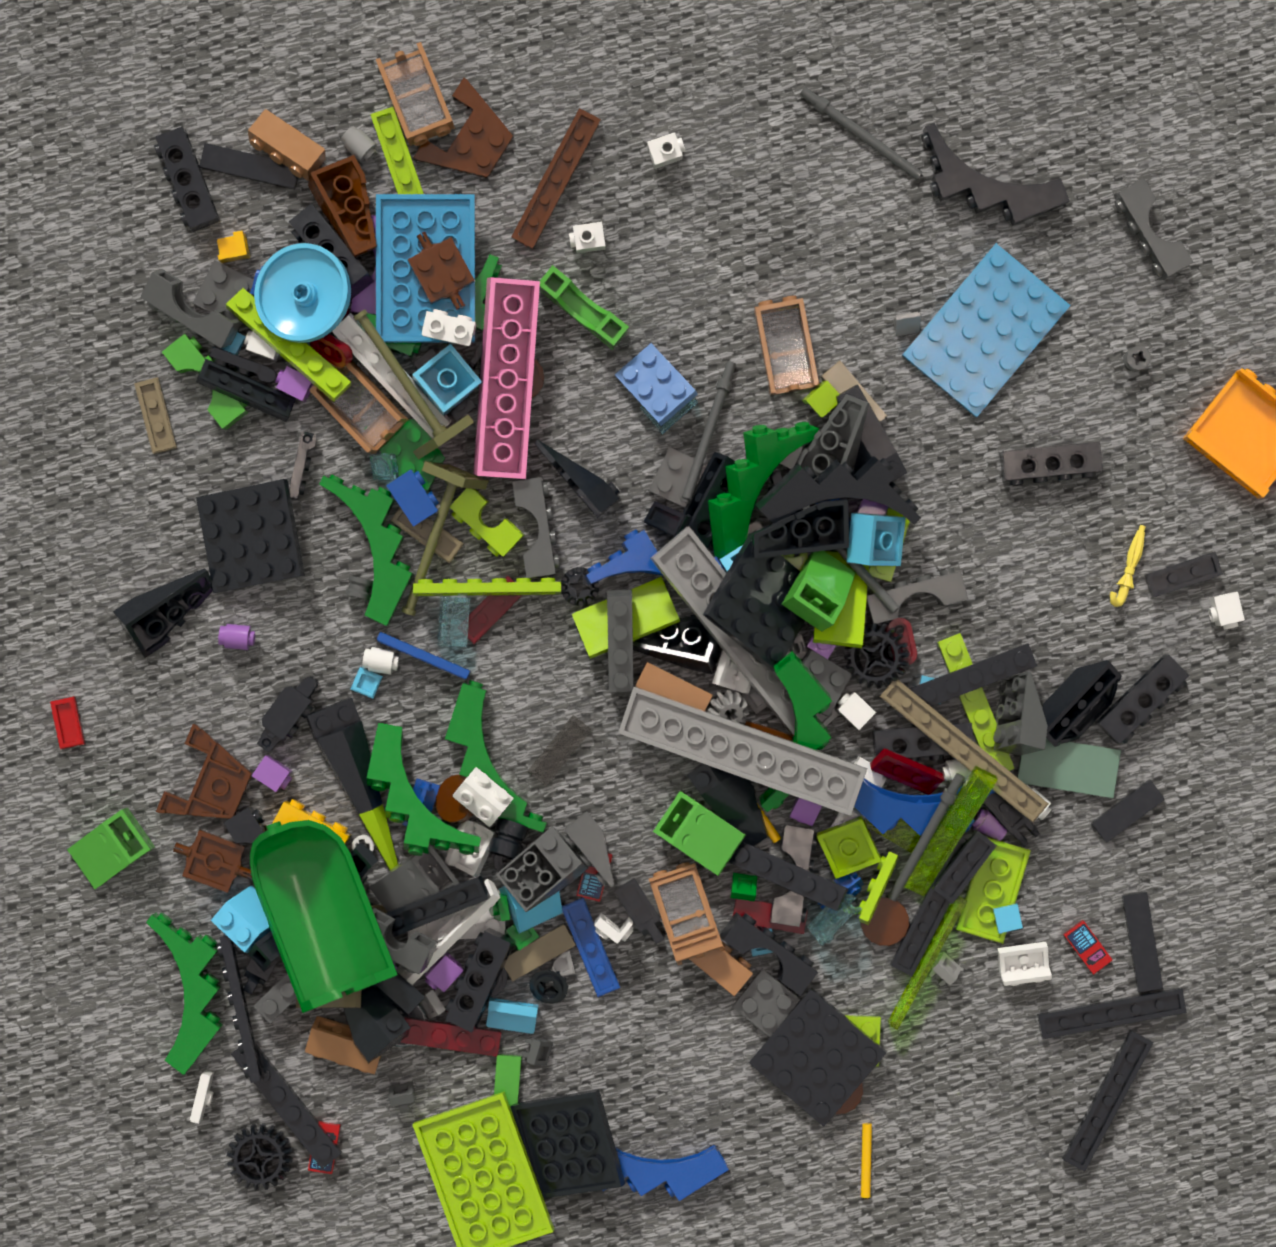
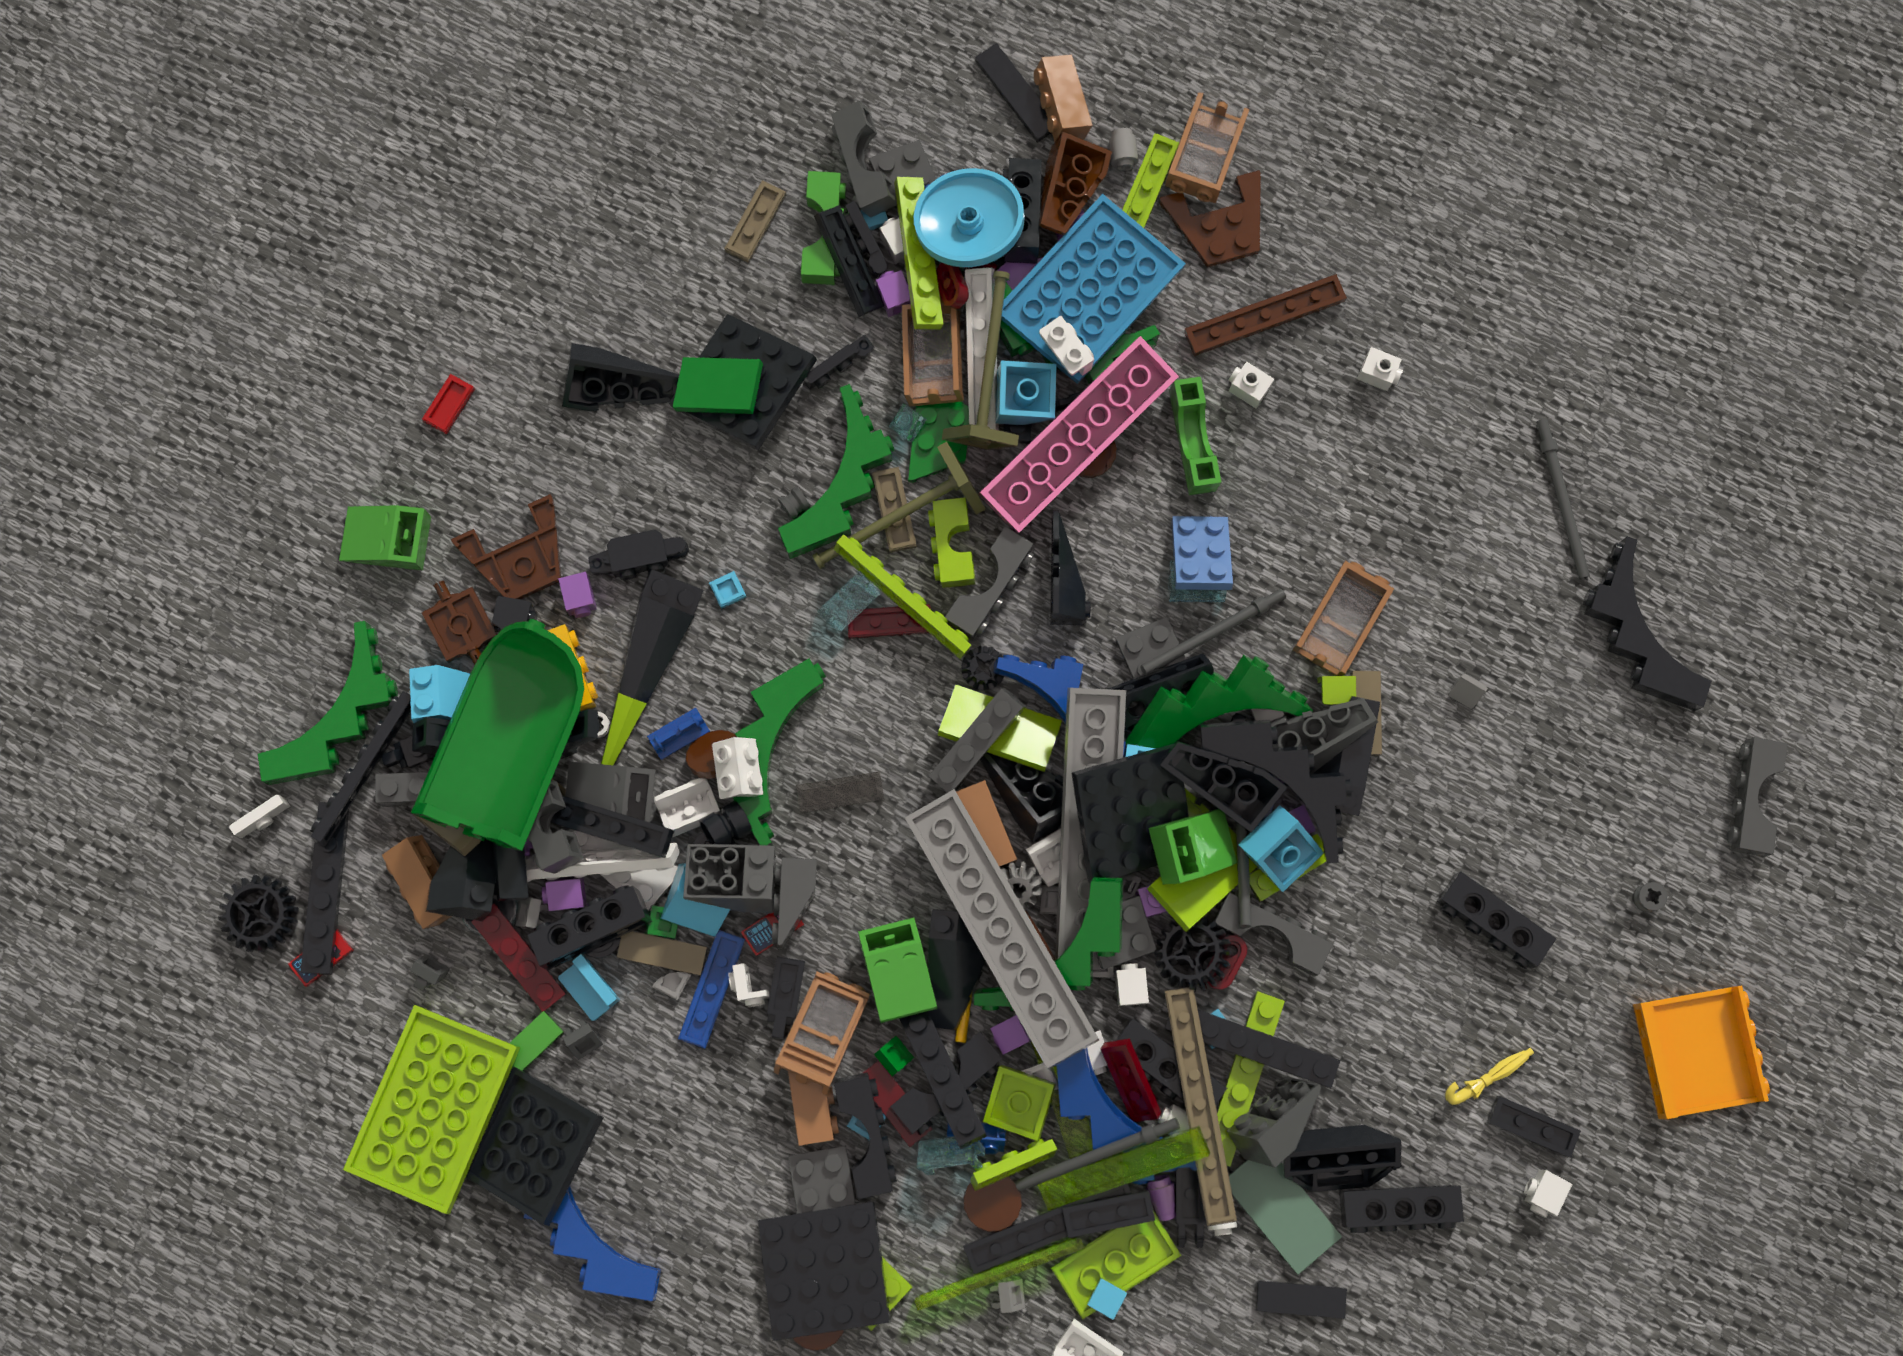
camera: 40 degrees right, 10 degrees down
(178, 141) = (964, 19): black brick -> none
(233, 247) = (944, 144): yellow panel -> none
(236, 636) = (654, 454): medium lavender brick -> none
(237, 555) = (718, 385): none -> green tile
(380, 660) = (756, 580): white brick -> none
(402, 803) = (662, 714): green arch -> none
(413, 497) = (909, 465): blue brick -> none
(423, 655) = (797, 608): blue tile -> none
(441, 270) = (1101, 298): reddish brown plate -> none
(500, 910) = (664, 880): green plate -> none
(553, 994) = (641, 1001): black gear -> none
(666, 519) = (1110, 673): black tile -> none
(986, 330) = (1532, 757): dark azure plate -> none

